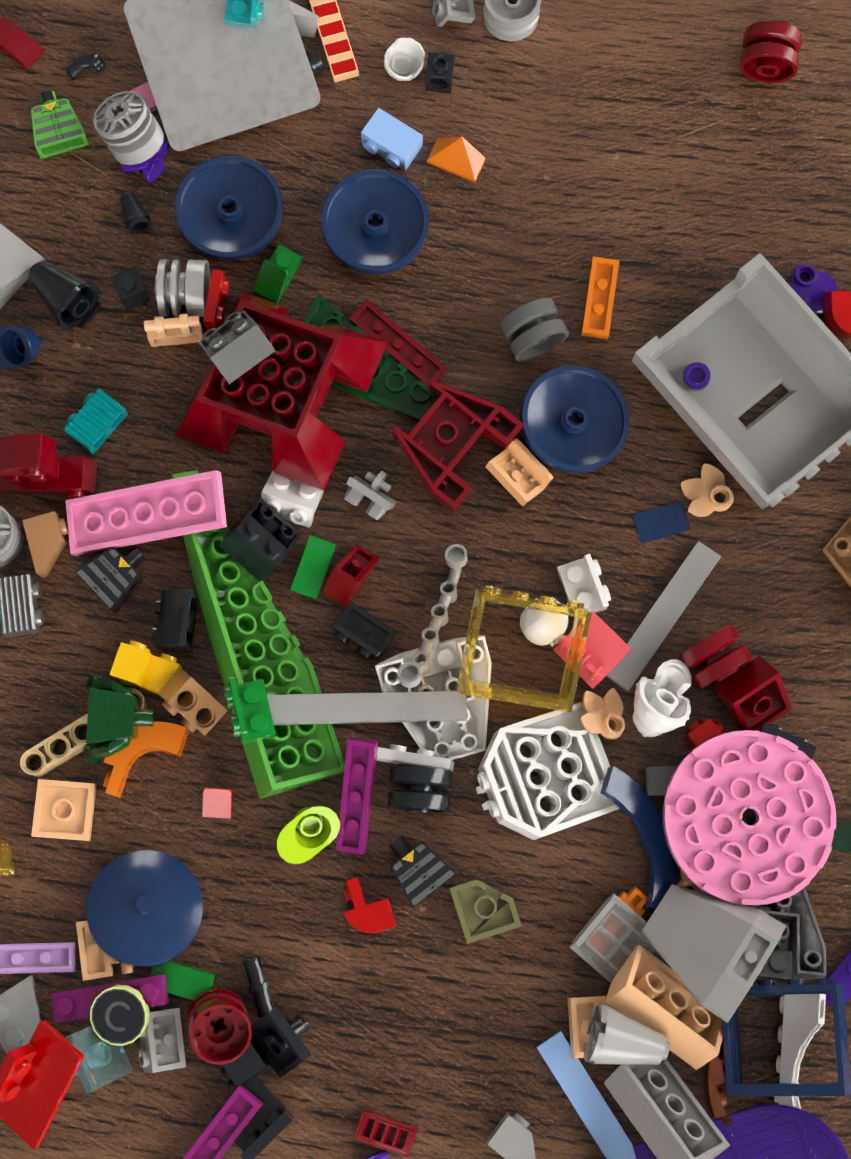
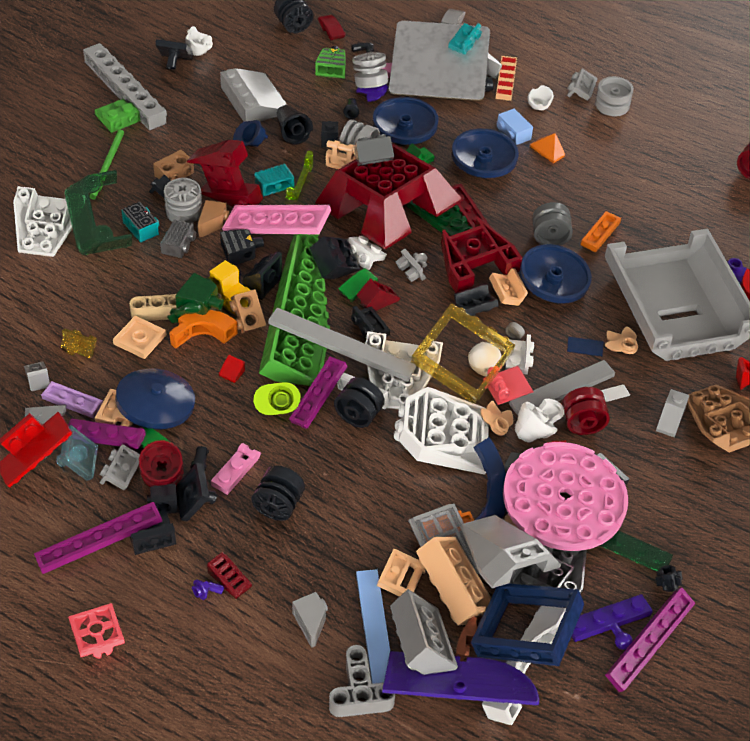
camera: 25 degrees right, 30 degrees down
(119, 1015) = (105, 436): black tile -> none
(136, 432) = (293, 194): none -> clear neon green hinge
(252, 710) = (279, 311): green bracket -> none
(306, 963) = (235, 469): none -> bright pink plate
(370, 917) = (289, 455): red brick -> none
(388, 990) = (278, 493): none -> black wheel
(411, 672) = (395, 341): light grey bar -> none
(418, 870) = (335, 449): torso -> none
(439, 72) = (557, 109): black brick -> none
(483, 910) = (363, 486): olive plate -> none
(486, 521) = (475, 300): none -> black bracket
(561, 549) = (515, 331): none -> light grey tile
(622, 1040) = (415, 573): light grey cone -> none
(696, 376) = (642, 282): dark purple tile -> none
(727, 590) = (615, 393): none -> white sticker
(754, 695) = (604, 440): dark red slope -> none
(822, 594) = (672, 413): none -> light grey slope

